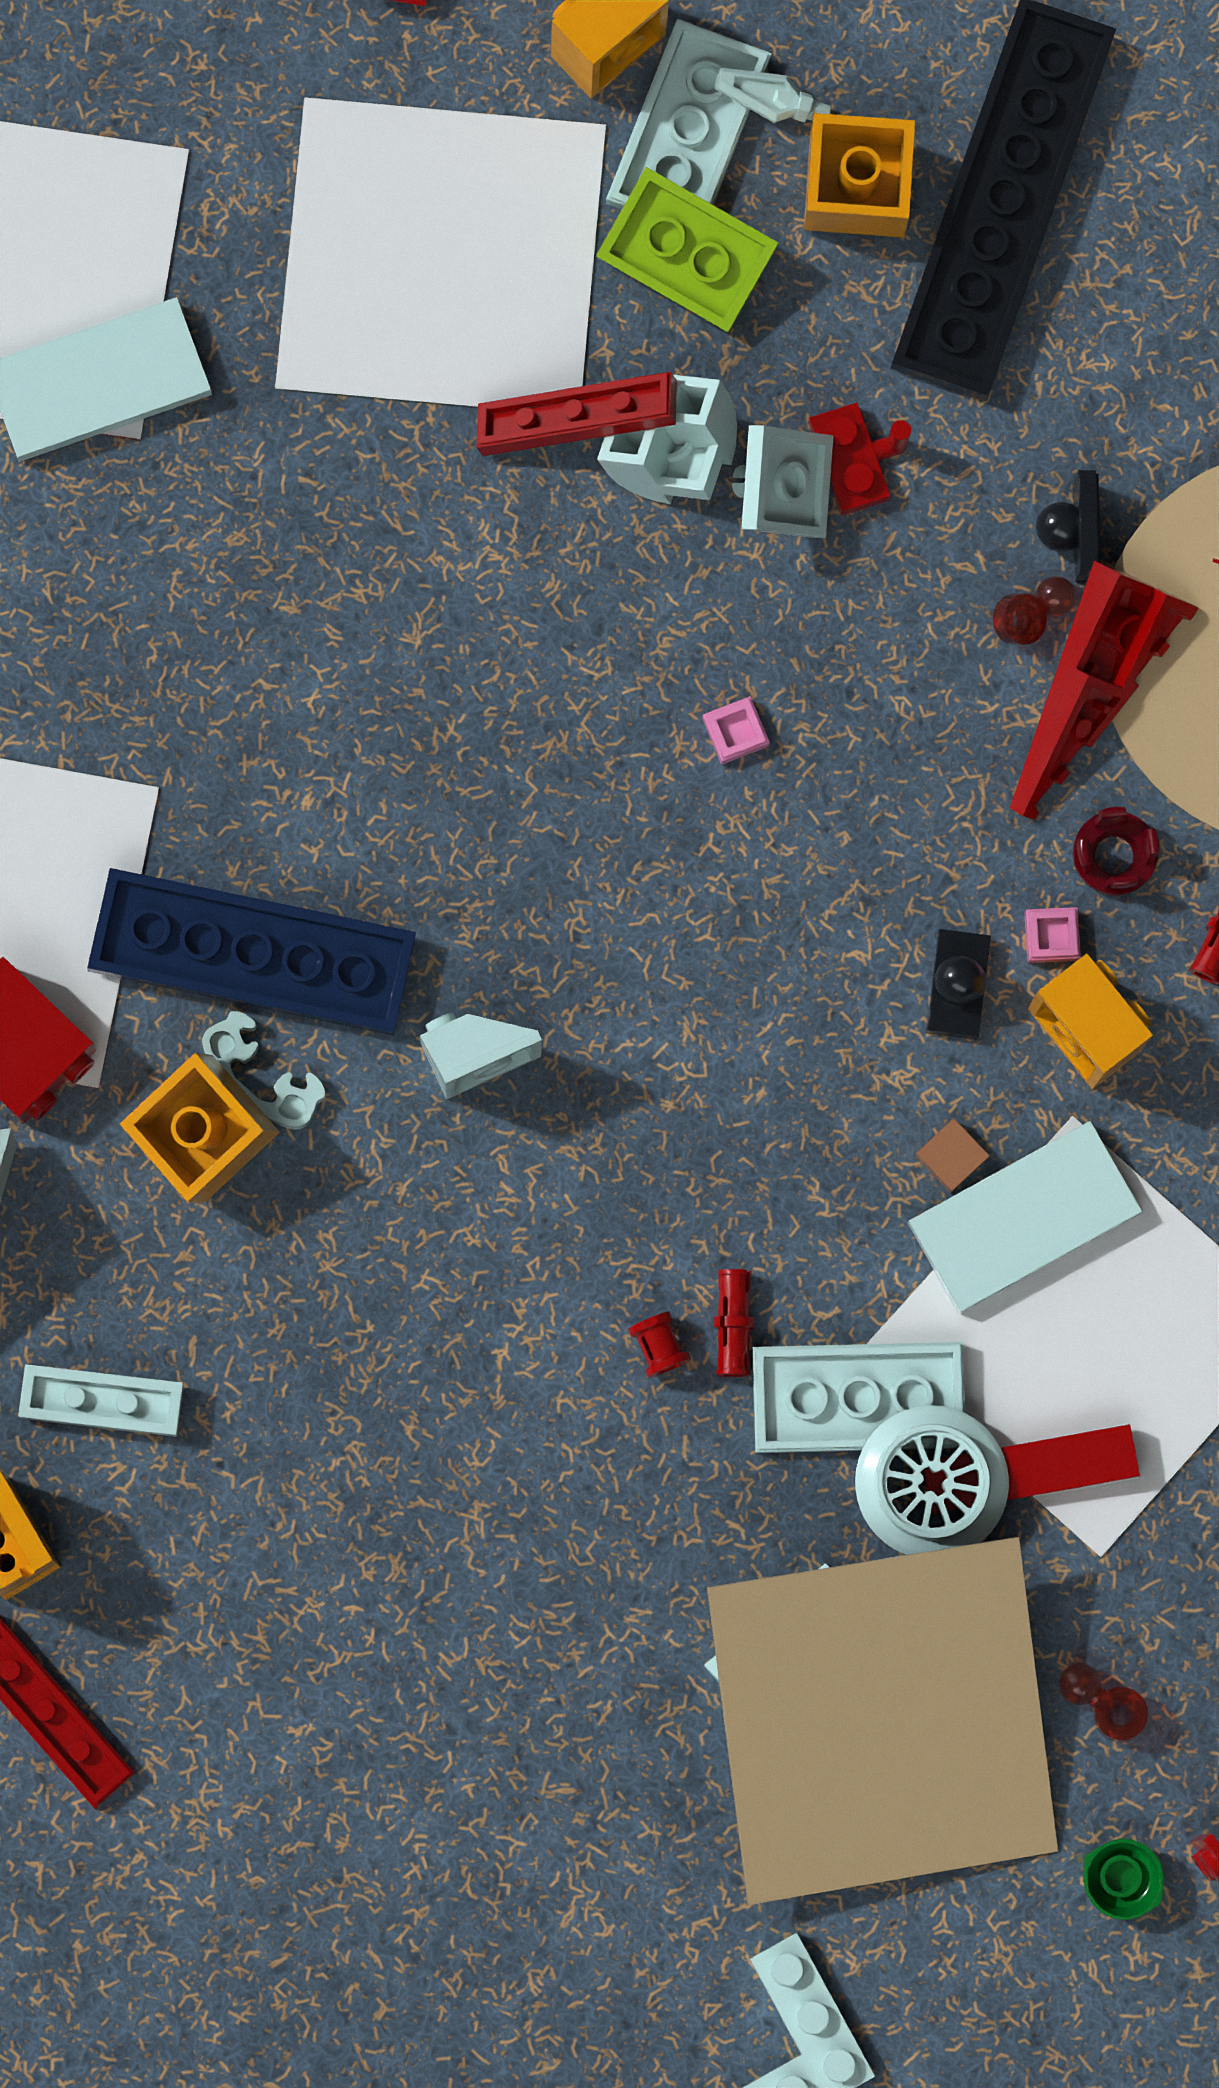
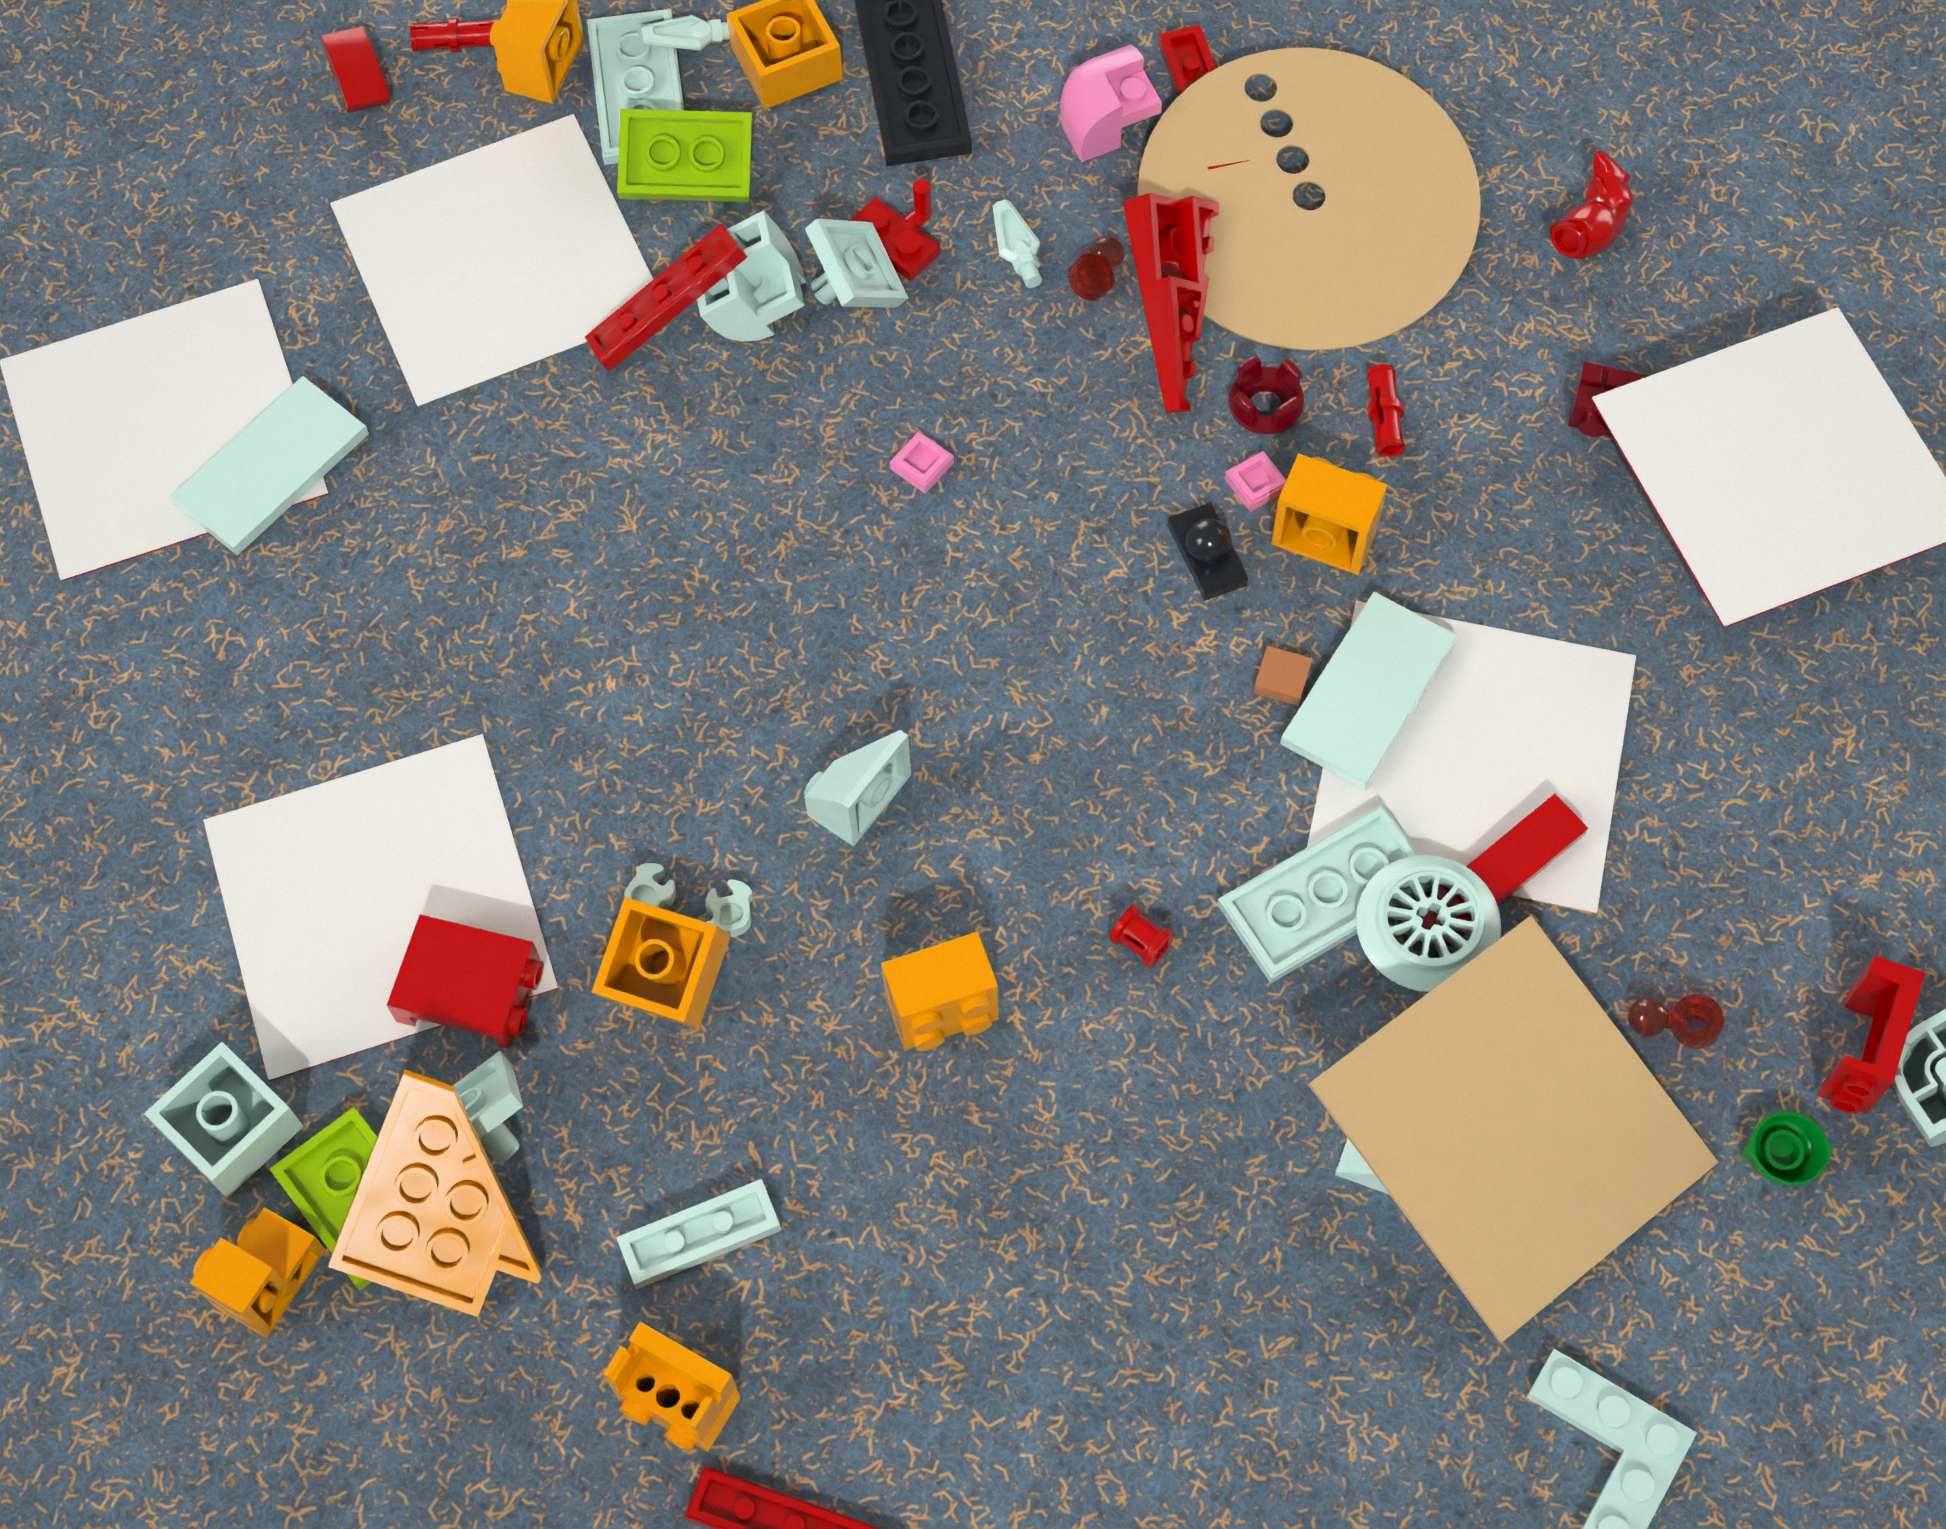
camera: 20 degrees left, 15 degrees down
(251, 951) = (627, 812): dark blue plate -> none
(437, 1302) = (941, 992): none -> light orange brick
(733, 1323) = (1191, 889): red pin -> none
(972, 532) = (1017, 242): none -> light aqua piece
(1075, 525) = (1092, 195): black tile -> none
(1154, 422) = (1104, 98): none -> bright pink brick

